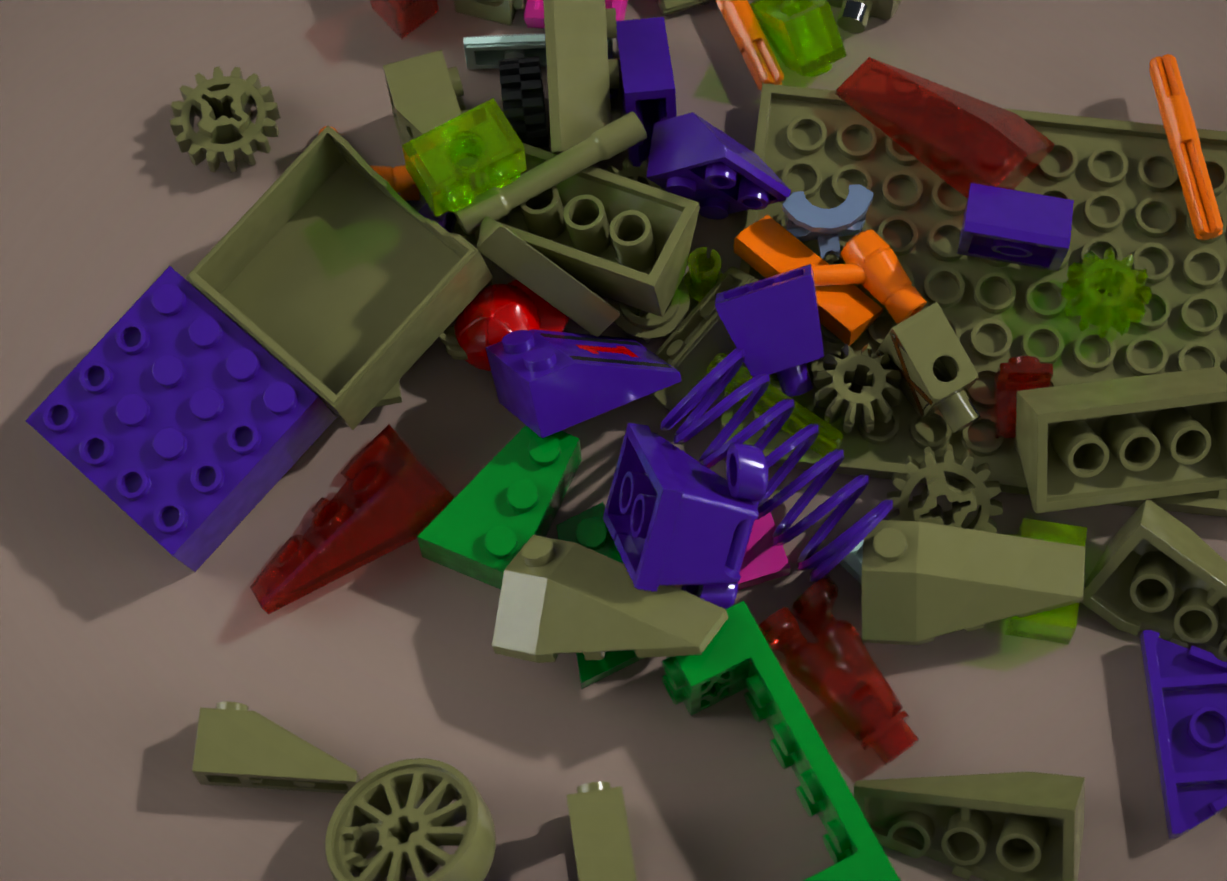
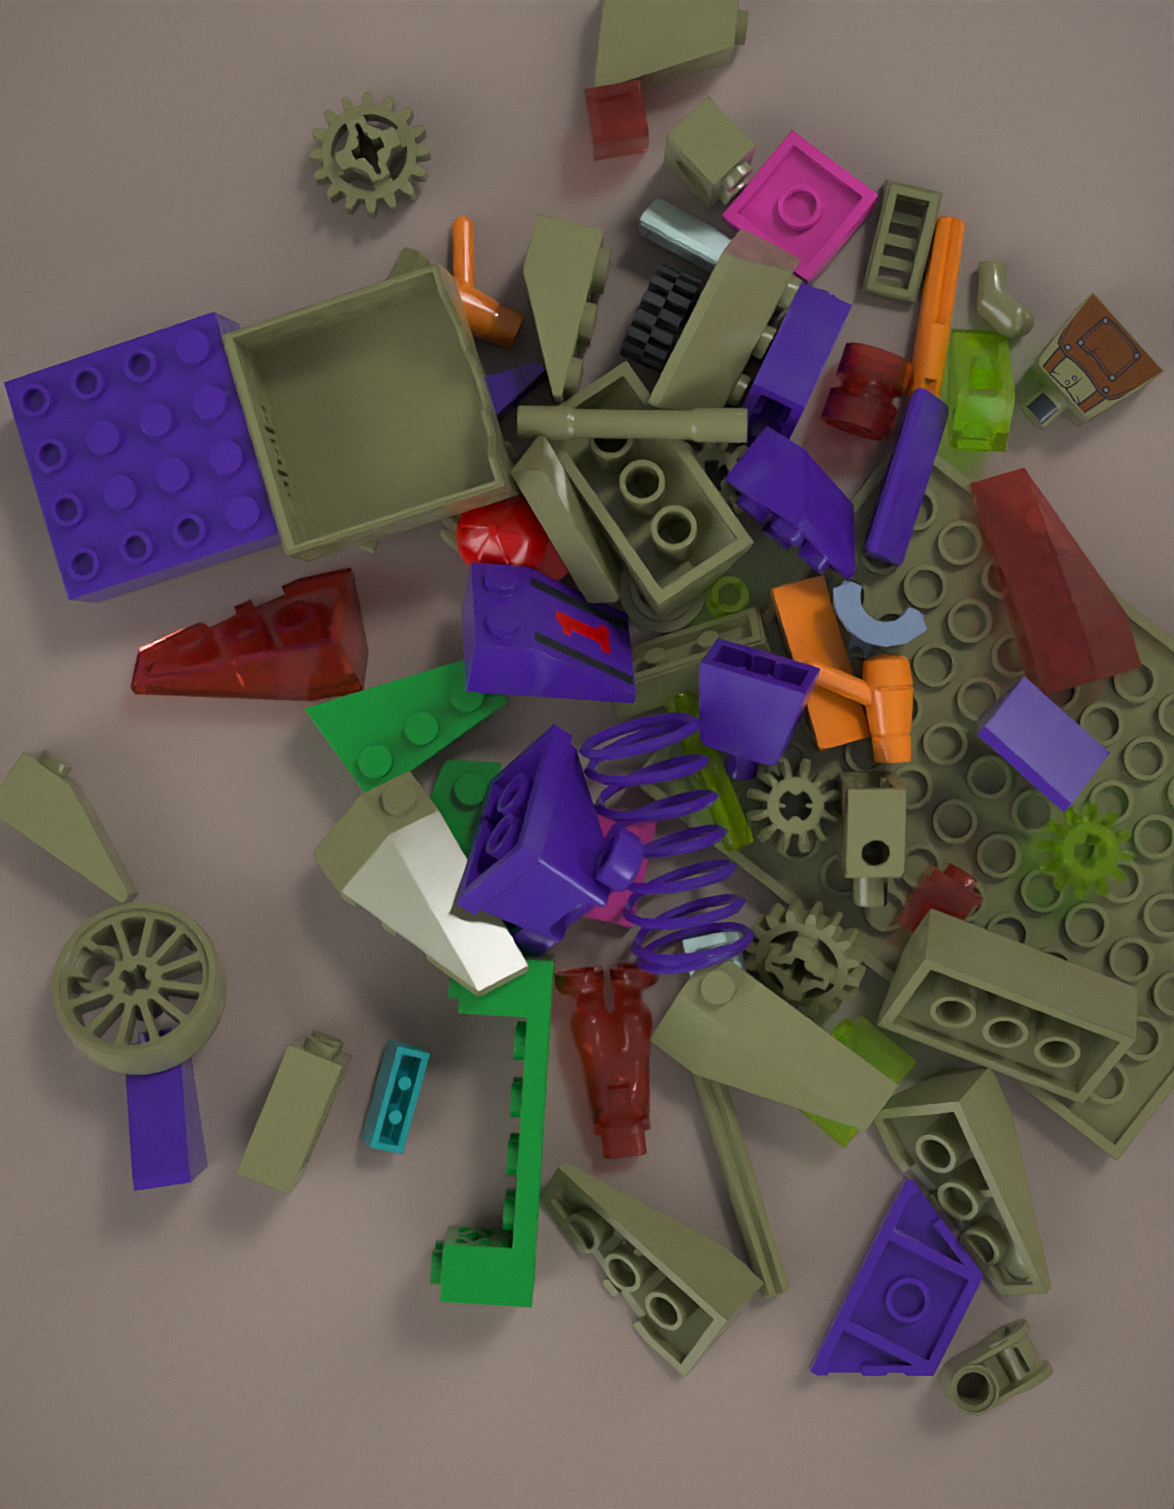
camera: 30 degrees right, 20 degrees up
(476, 134) = (523, 353): clear neon green brick -> none
(681, 815) = (395, 1096): none -> teal piece
(714, 73) = (867, 391): none -> clear red wheel
(783, 111) = (906, 478): none -> dark purple slope
(1007, 715) = (742, 1186): none -> olive axle

